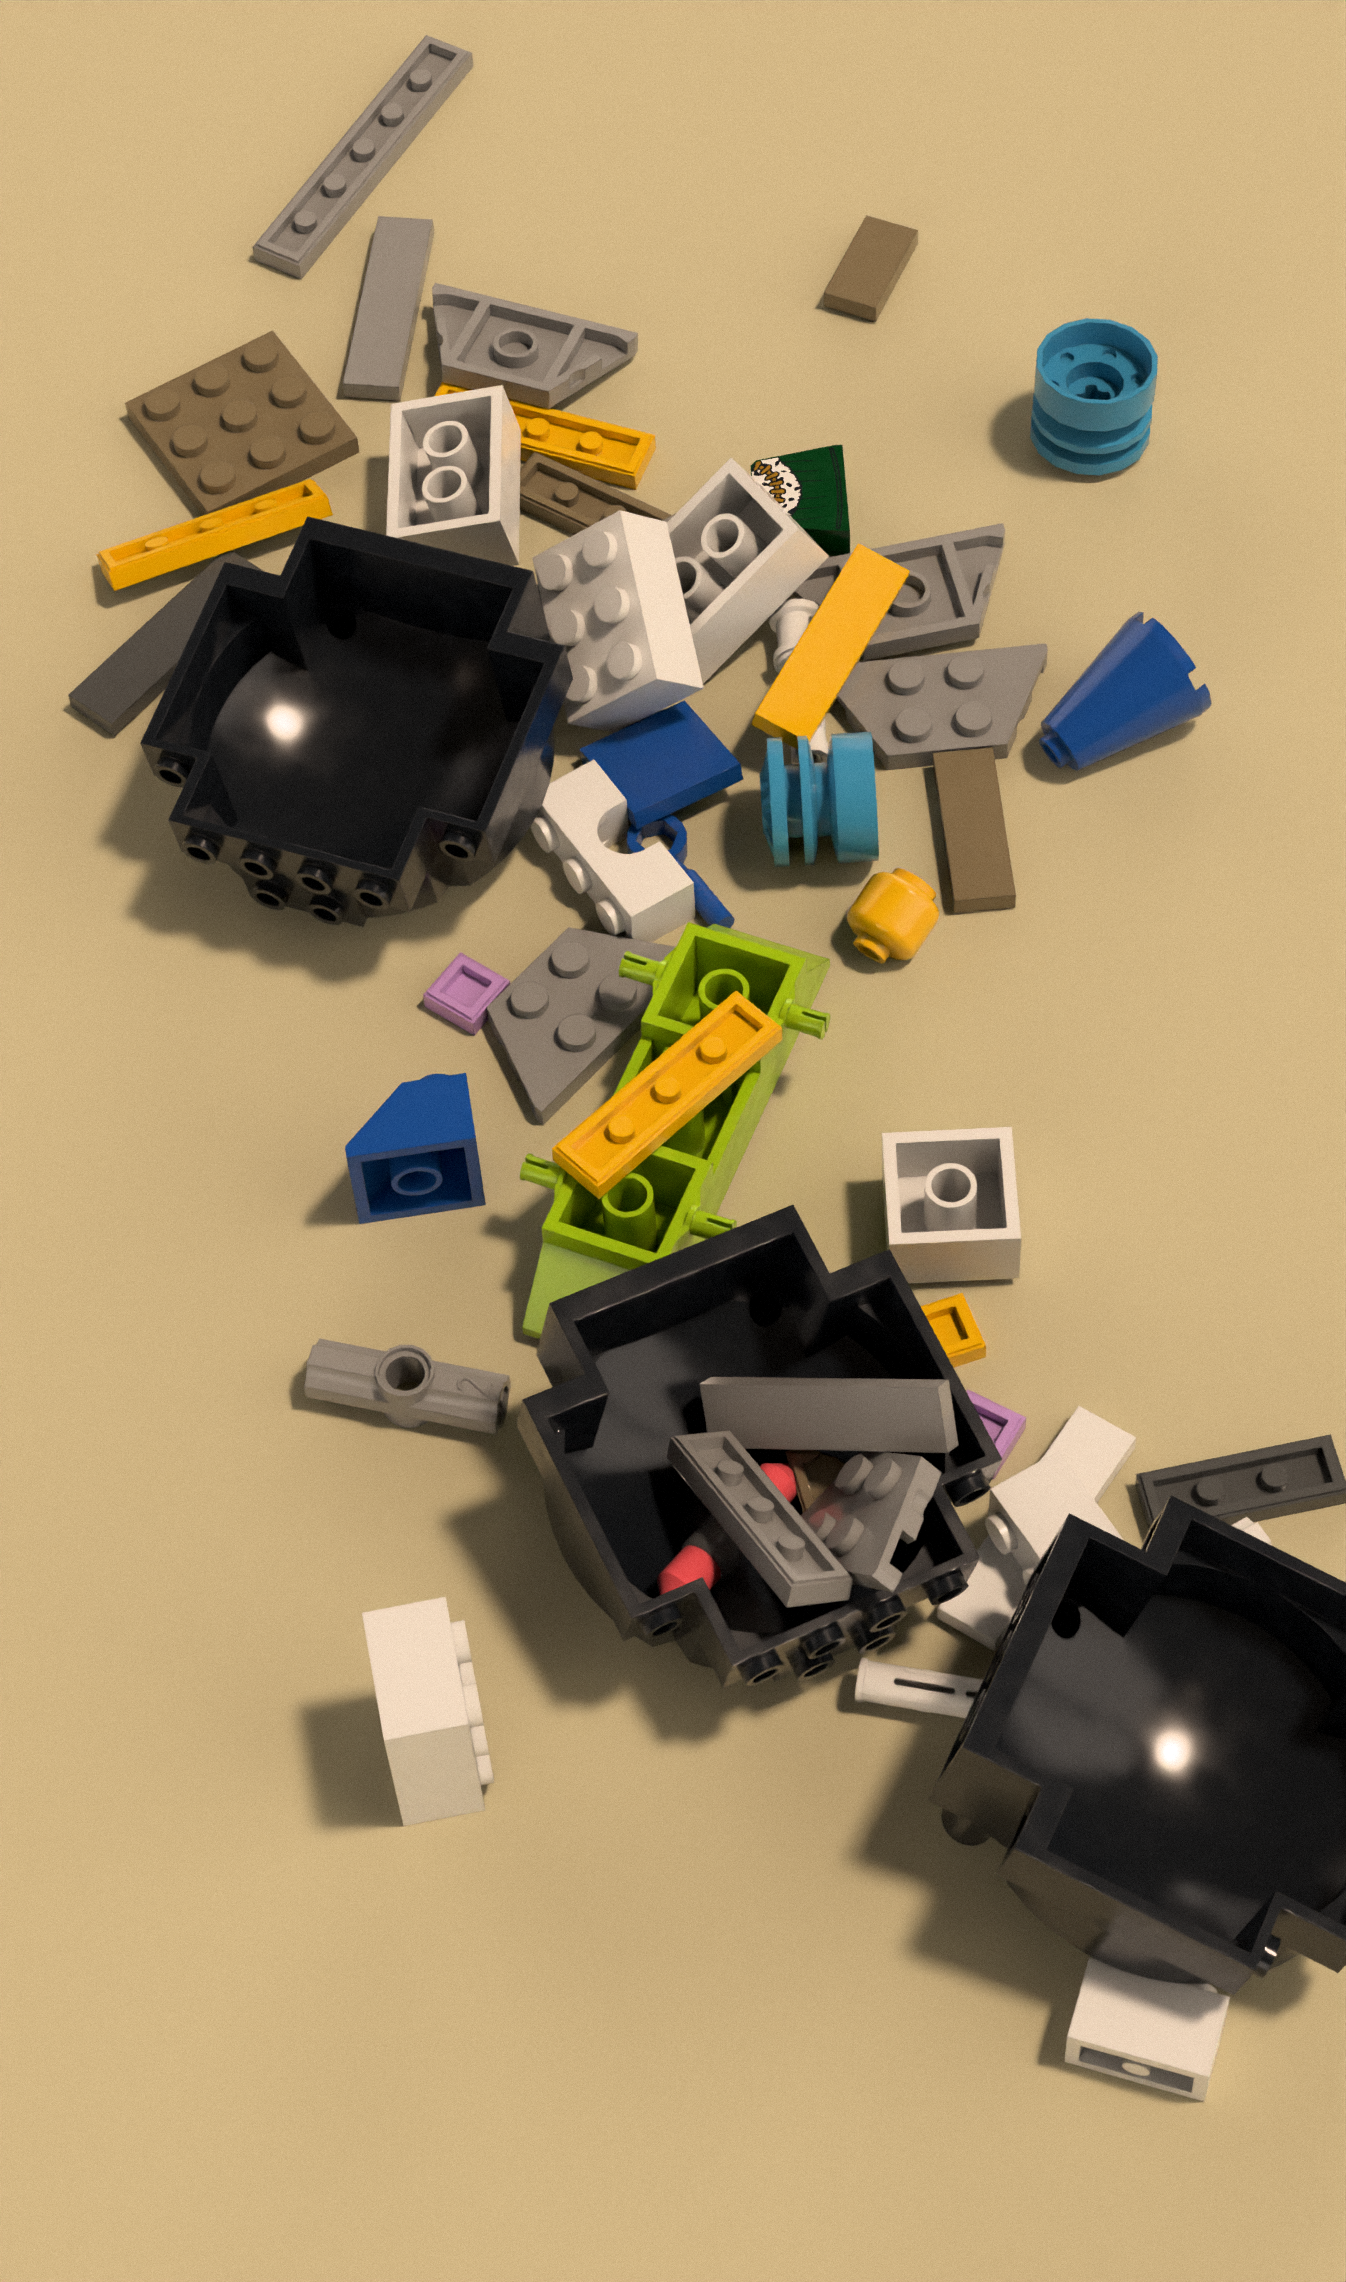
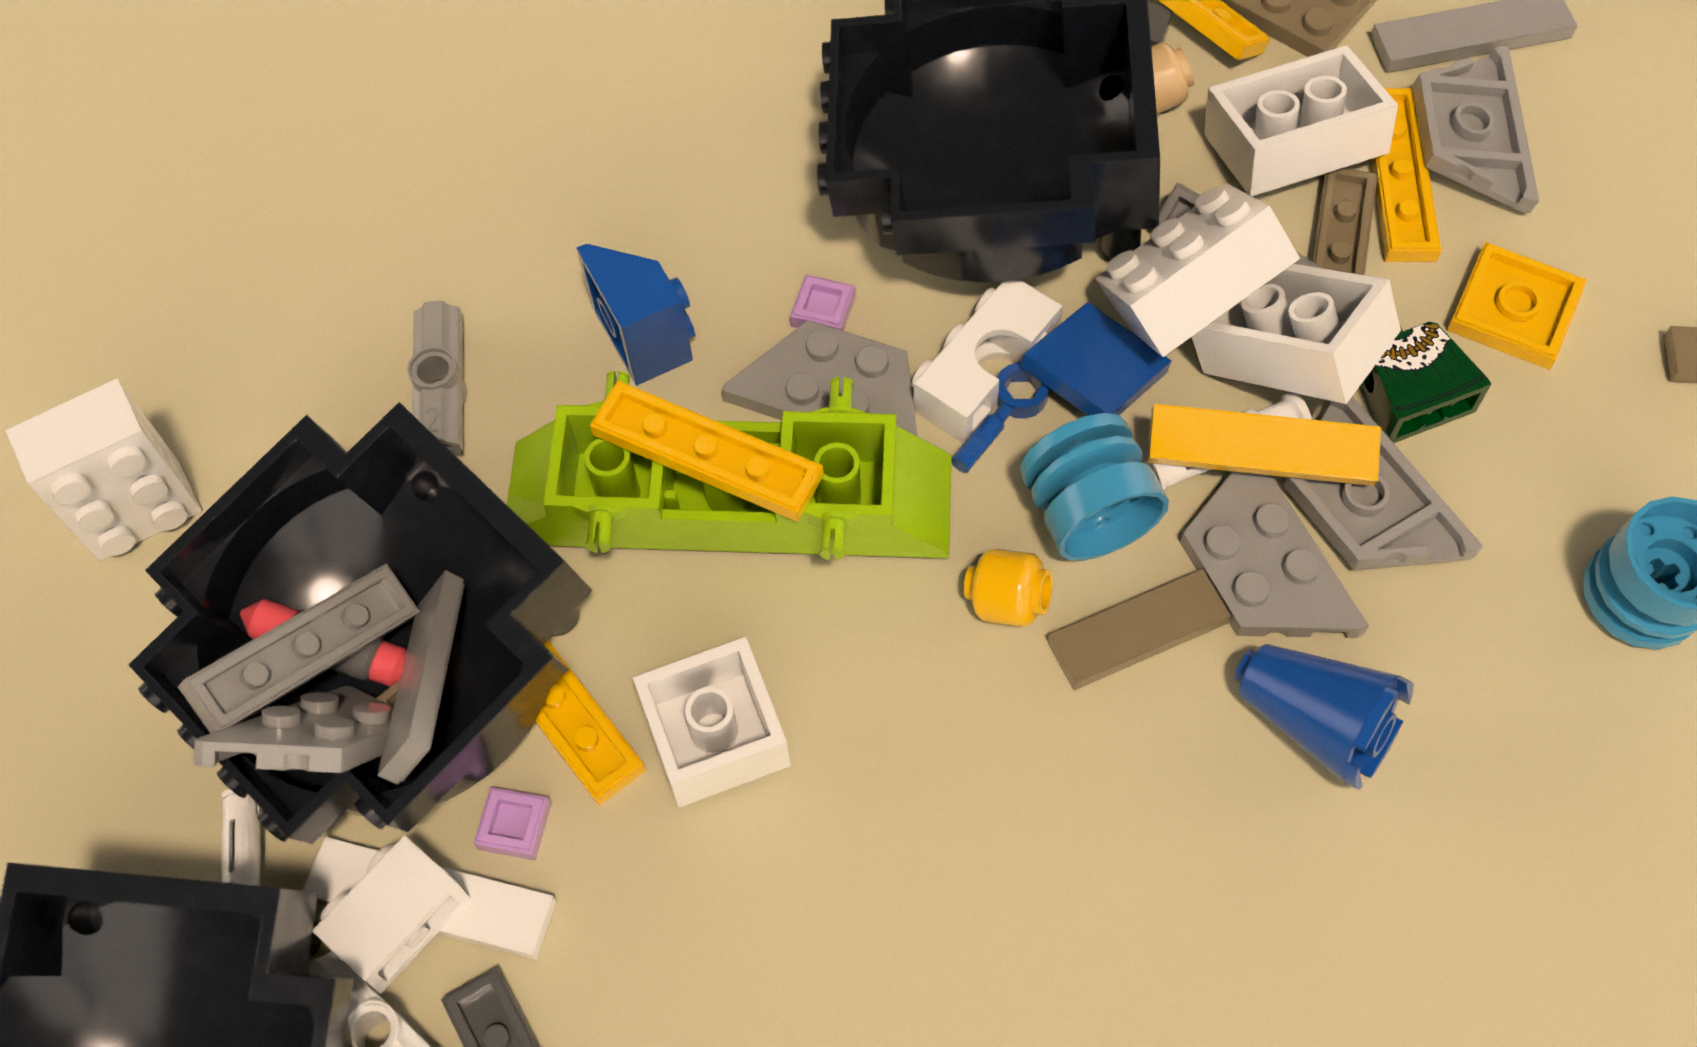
camera: 70 degrees right, 5 degrees up
(740, 401) = (1517, 305): none -> yellow tile

